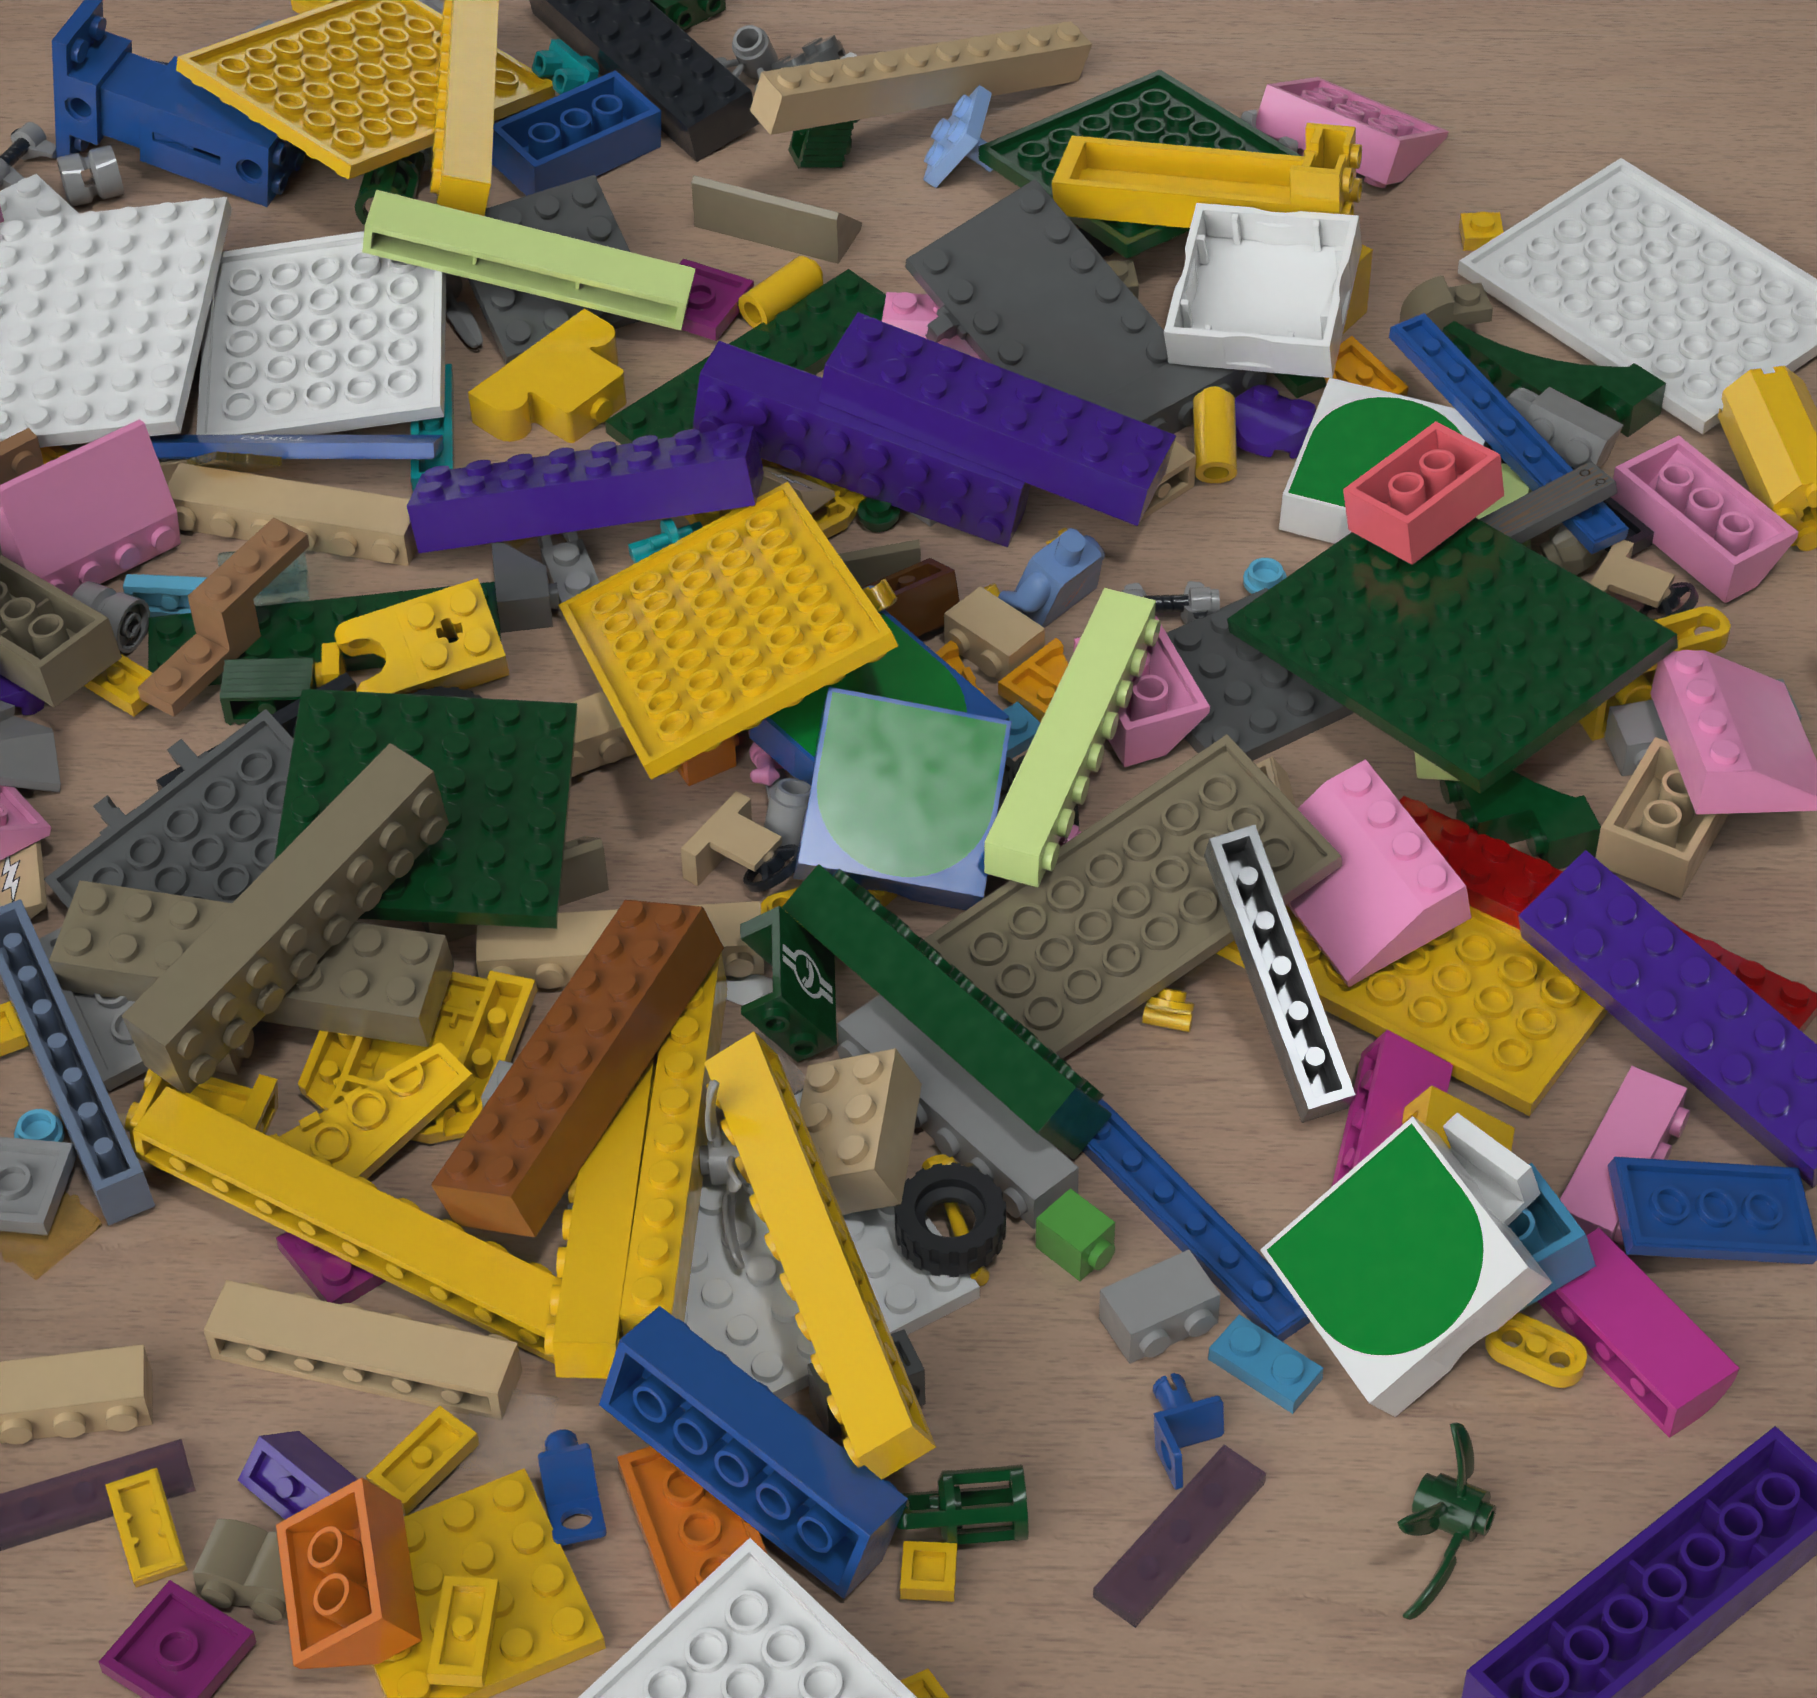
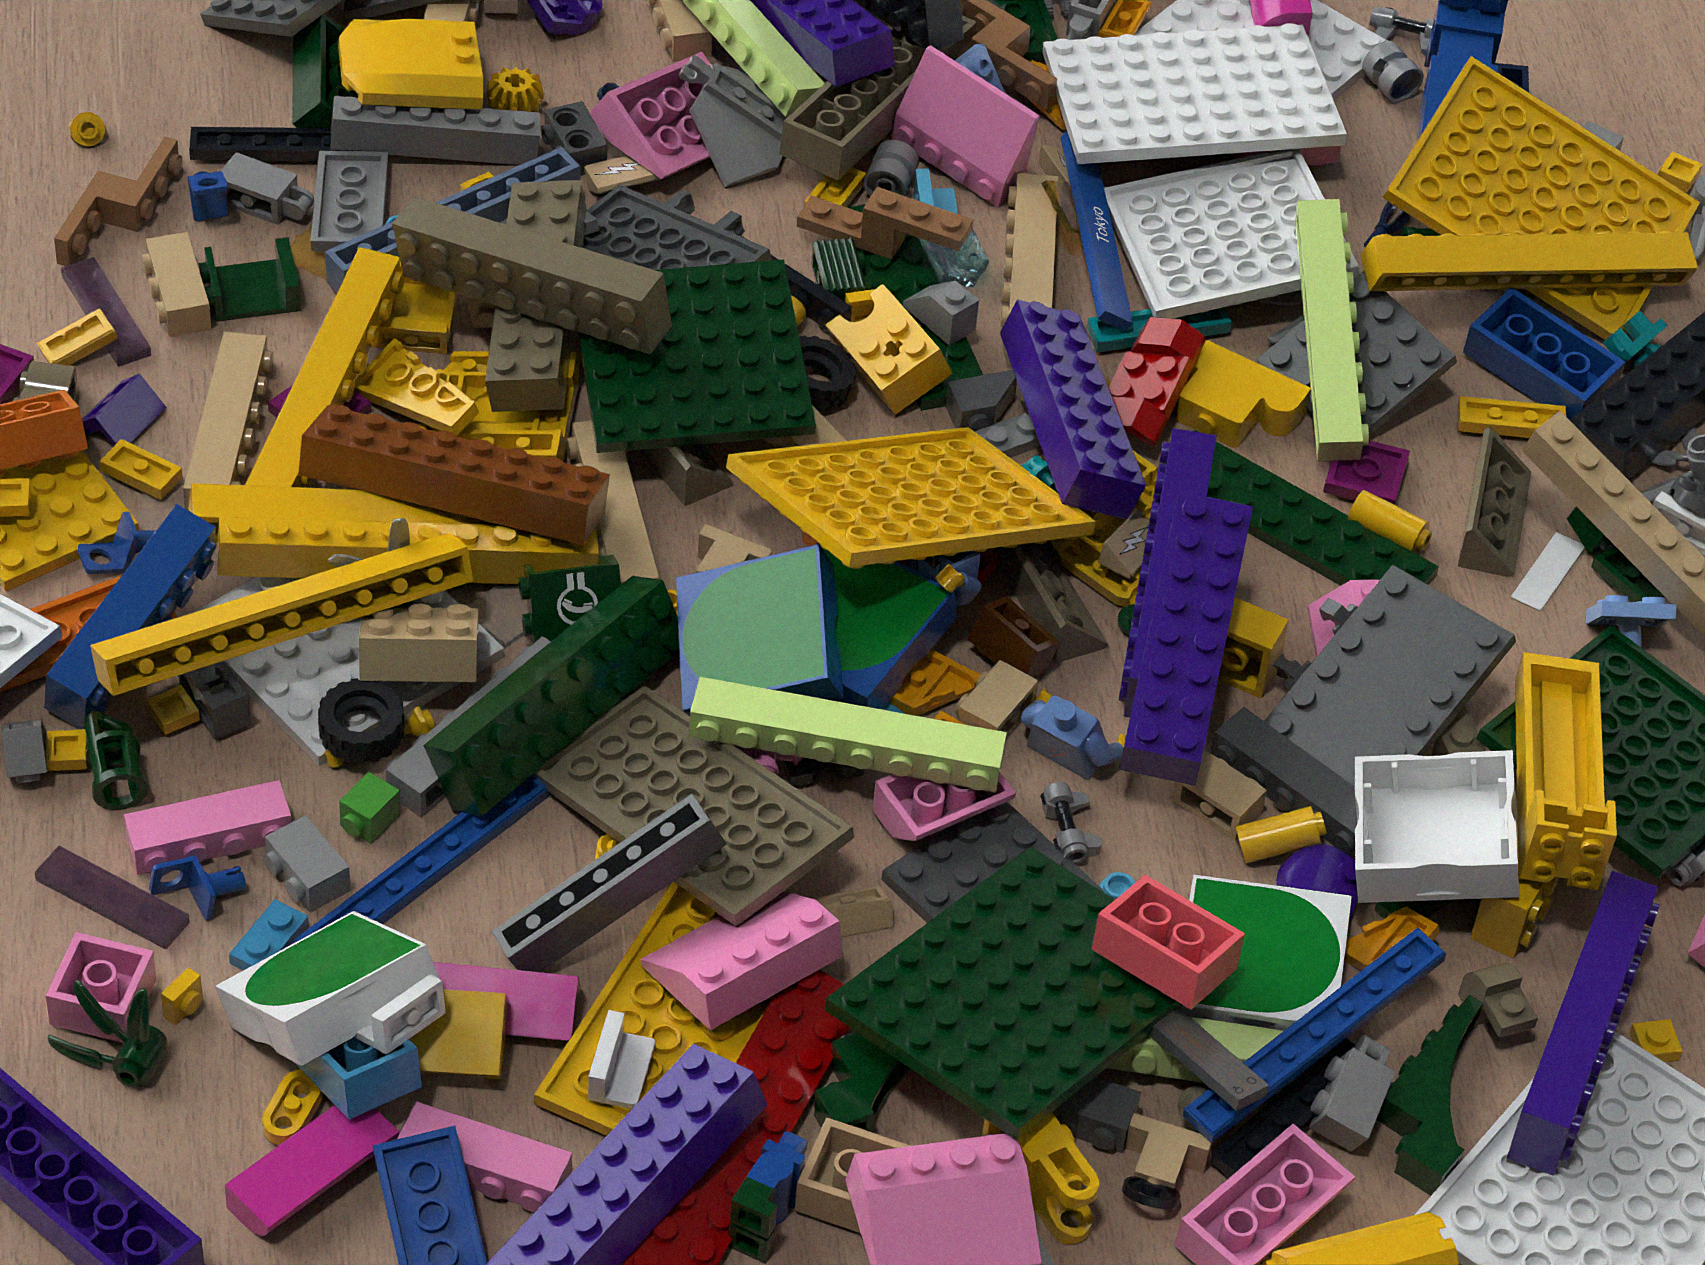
camera: 75 degrees right, 0 degrees up
(89, 1295) = (252, 287): none -> dark green panel
(327, 227) = (1384, 228): none -> dark blue piece
(374, 583) = (945, 310): none -> light grey slope
(509, 418) = (1154, 376): none -> red piece
(647, 182) = (1503, 416): none -> yellow plate
(859, 200) = (1548, 571): none -> white sticker
(890, 138) = (1624, 575): none -> dark green plate
(921, 1617) = (24, 750): none -> light grey slope
(1089, 1412) = (206, 825): none -> bright pink brick
(1352, 1535) = (109, 972): none -> bright pink brick
(1363, 1453) = (182, 996): none -> yellow plate
(1501, 1016) = (619, 1064): none -> white panel
(1507, 246) = (1584, 1023): none -> dark purple brick
(1692, 893) = (766, 1196): none -> hips

